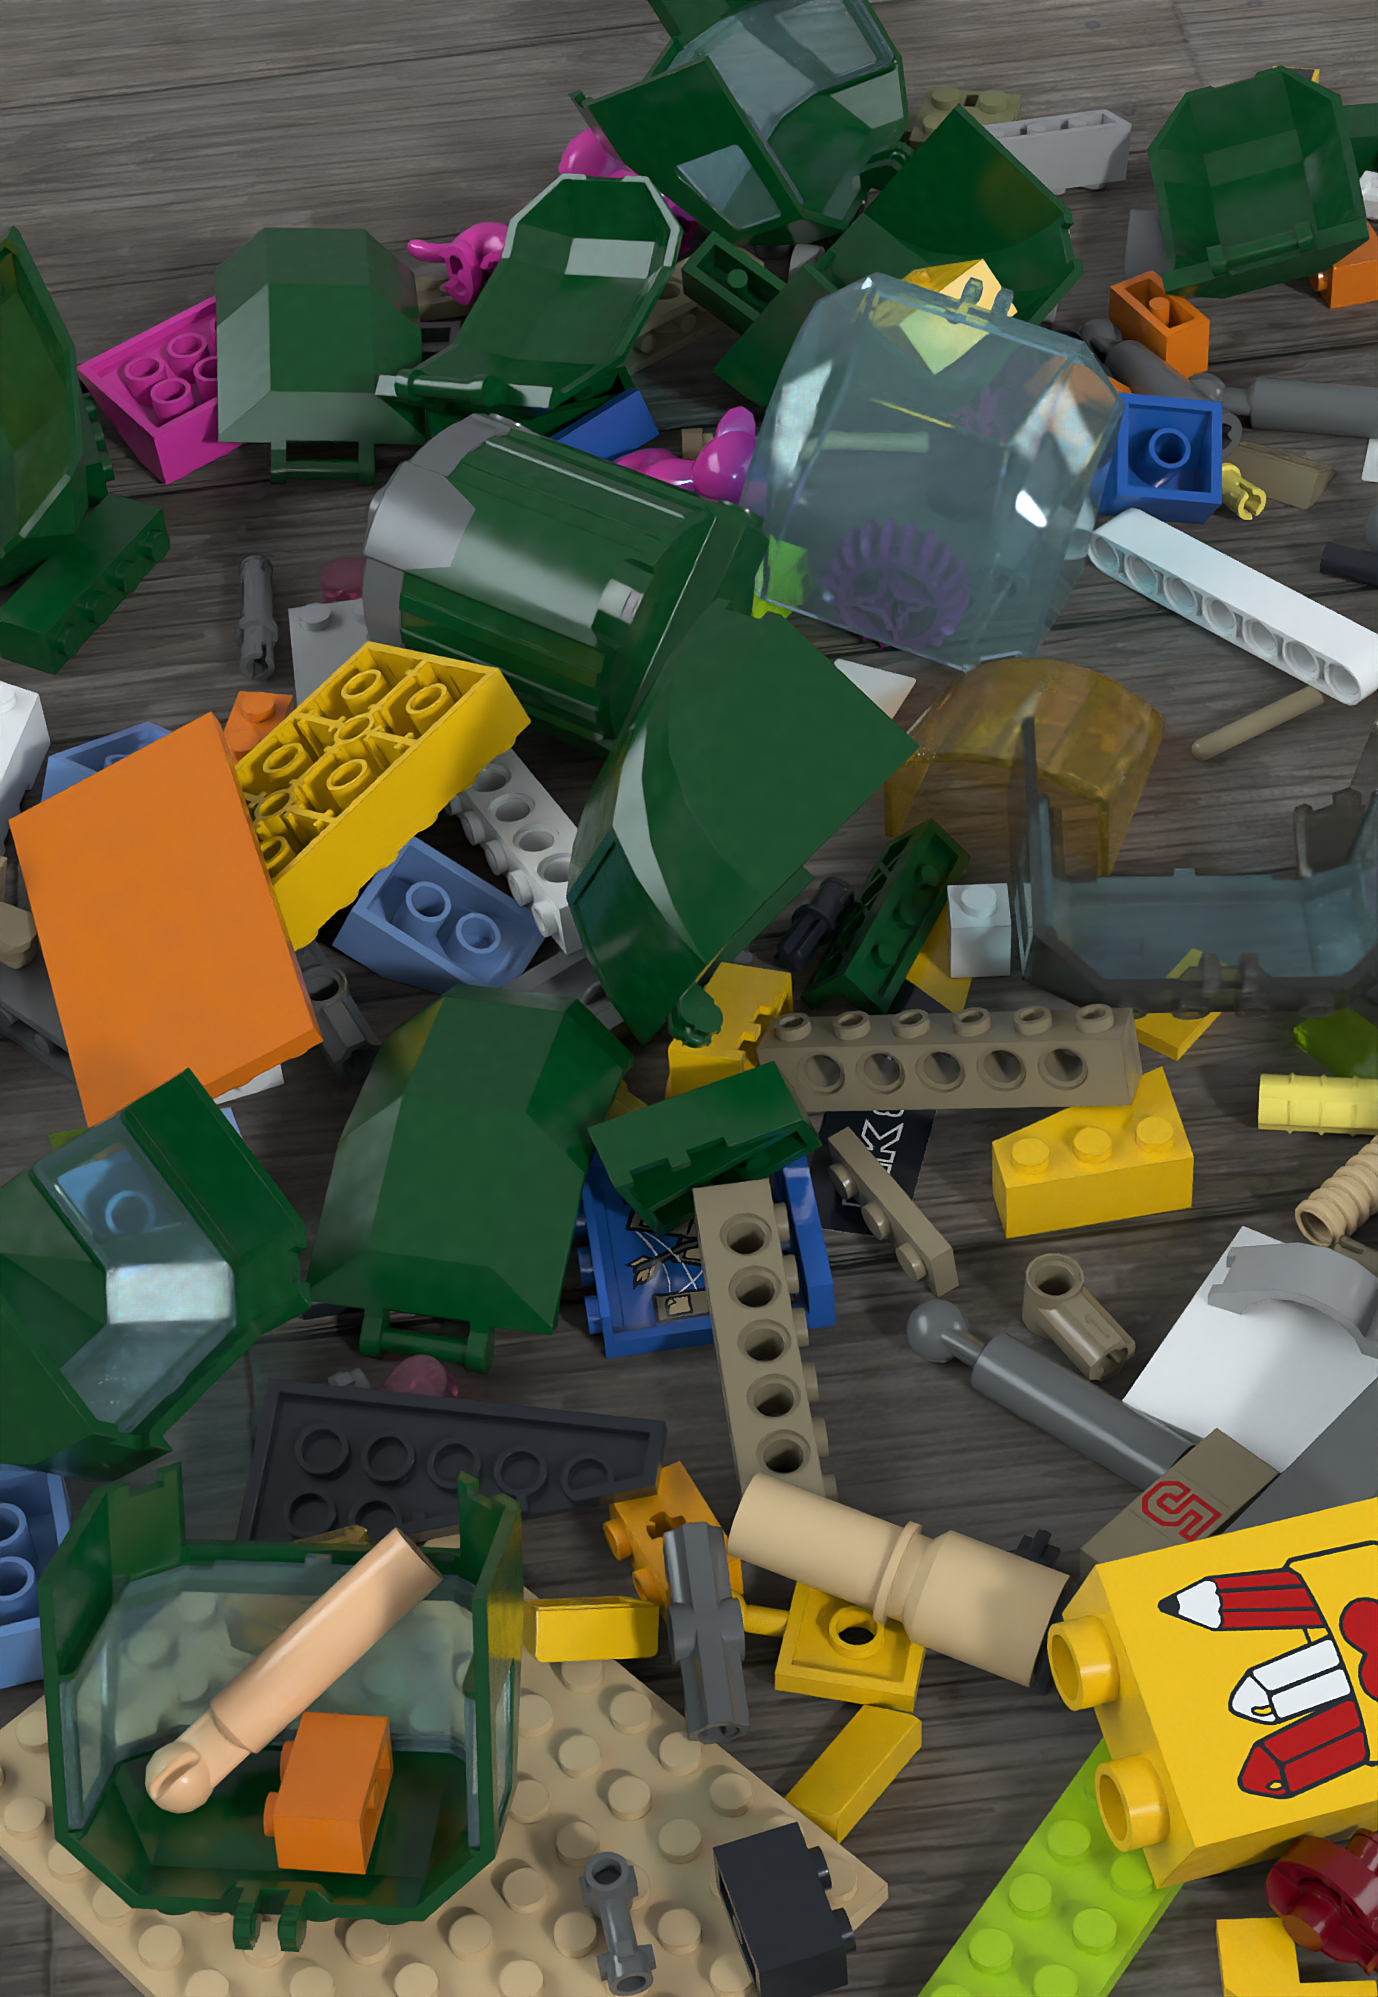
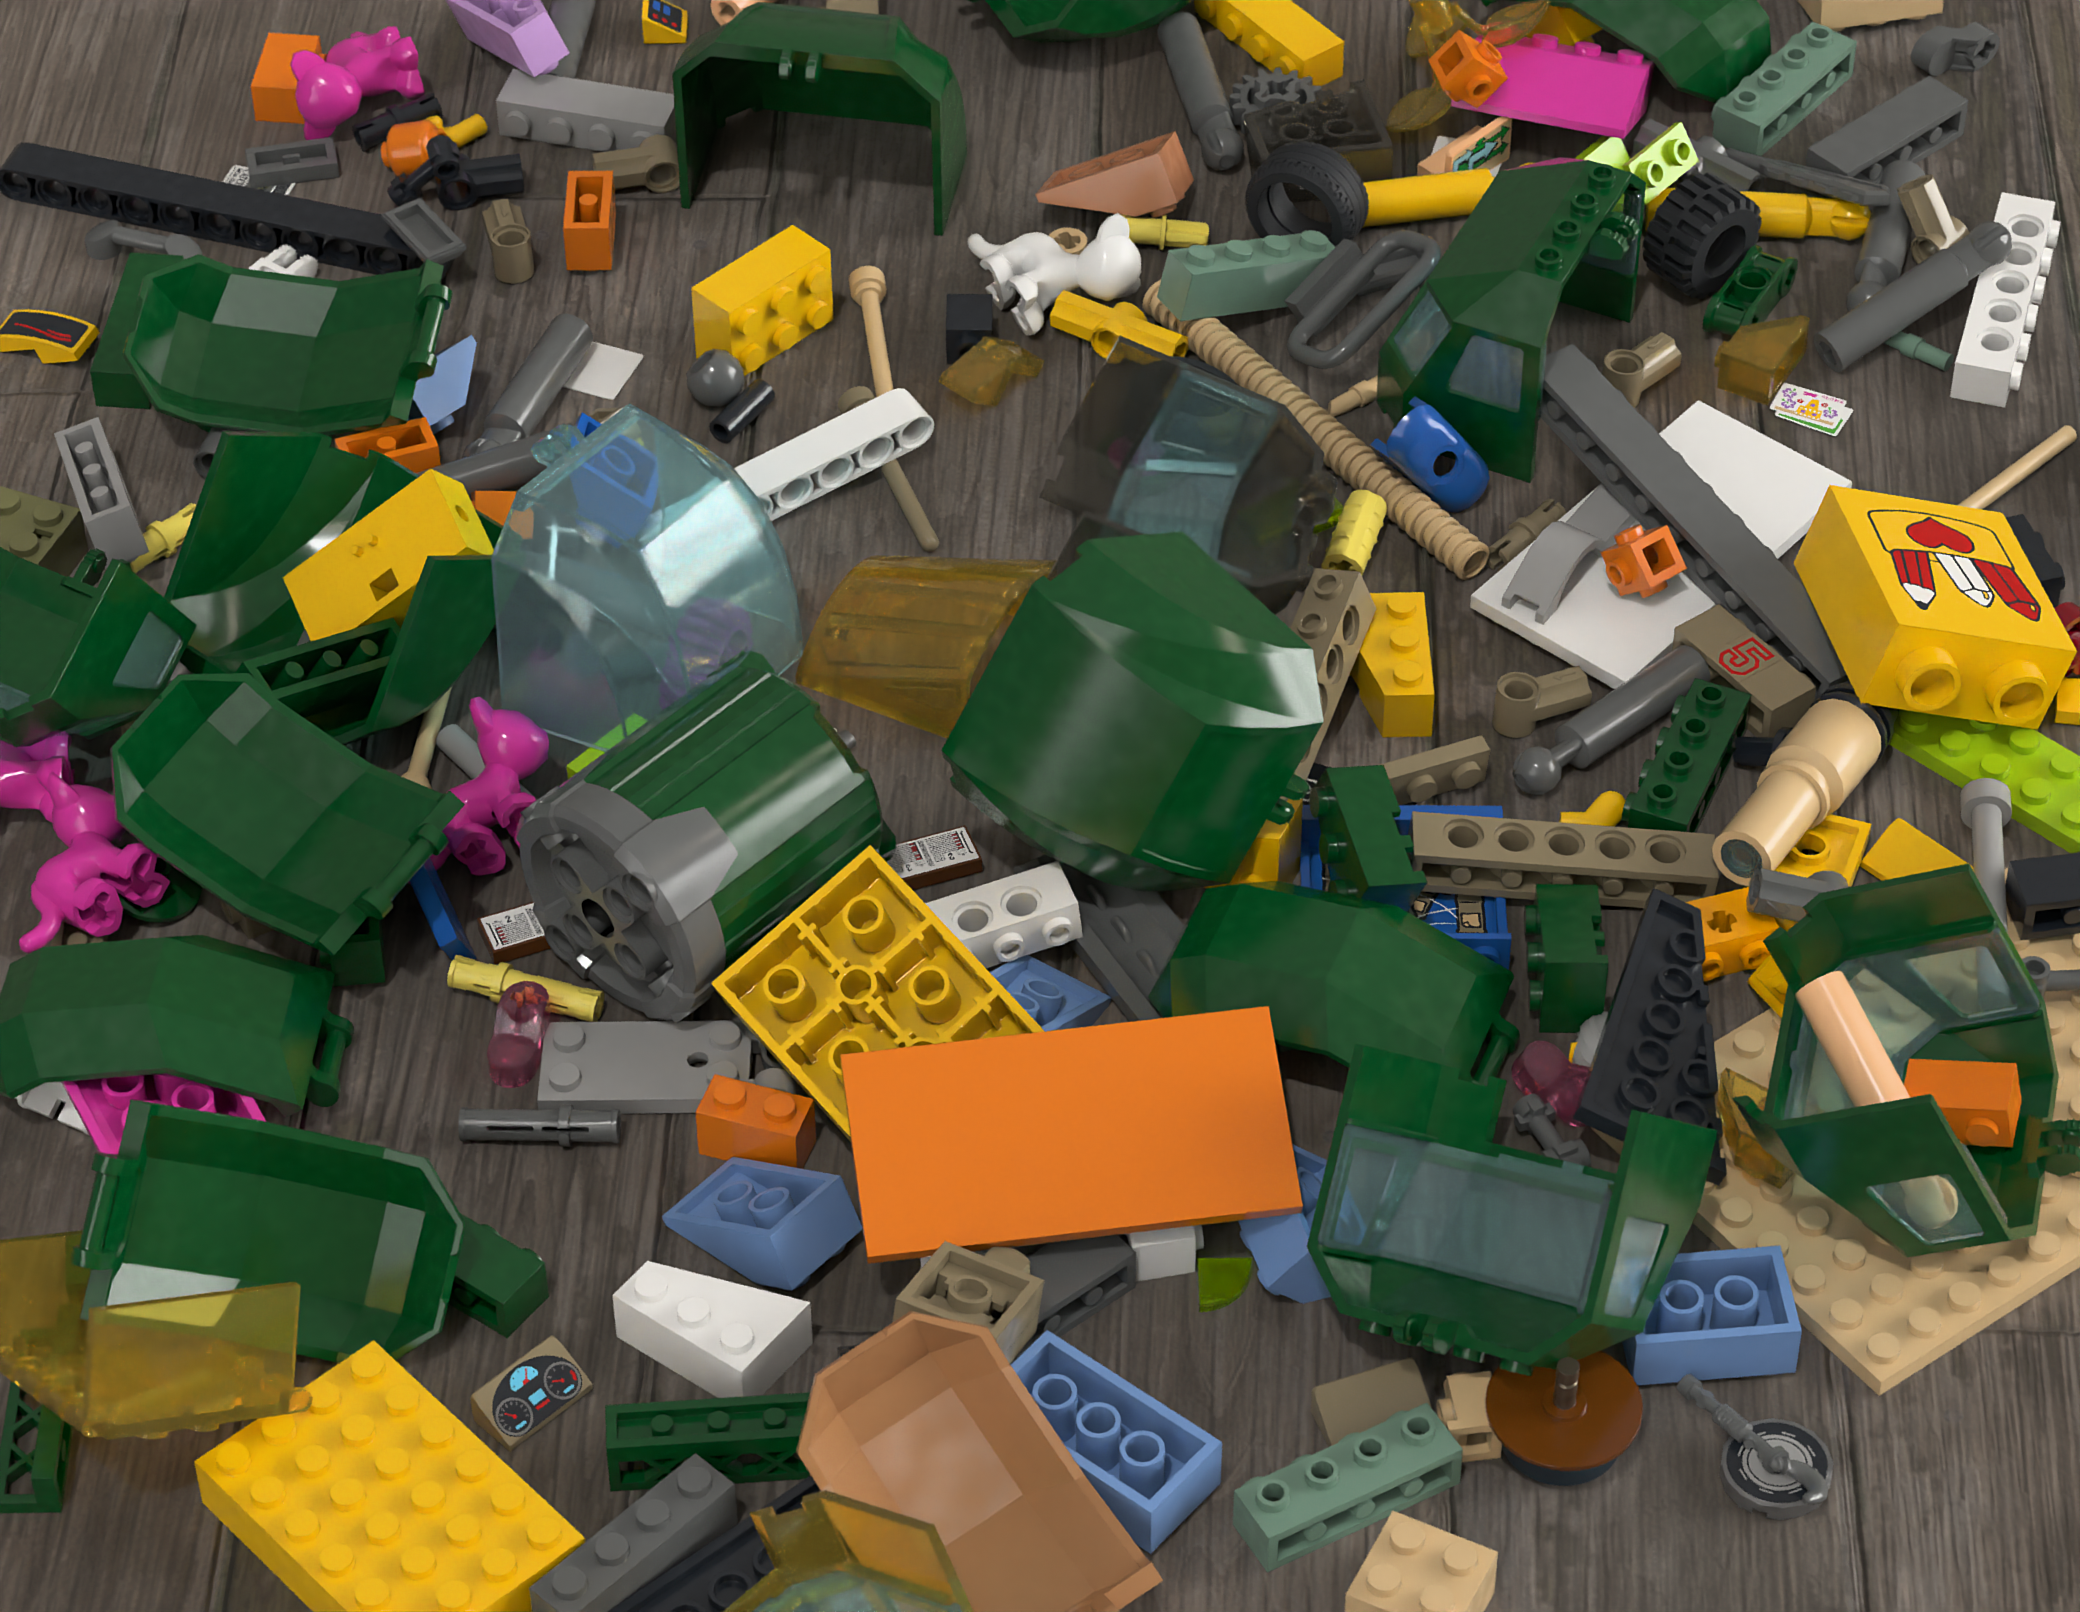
camera: 85 degrees left, 0 degrees up
(609, 1371) = (1565, 956): none -> dark green wedge
(879, 1409) = (1603, 811): none -> yellow arm
(945, 1818) = (1986, 809): none -> light grey piece
(978, 1483) = (1689, 759): none -> dark green brick
(1296, 336) = (446, 389): none -> medium blue slope
(1316, 1366) = (1643, 560): none -> orange brick

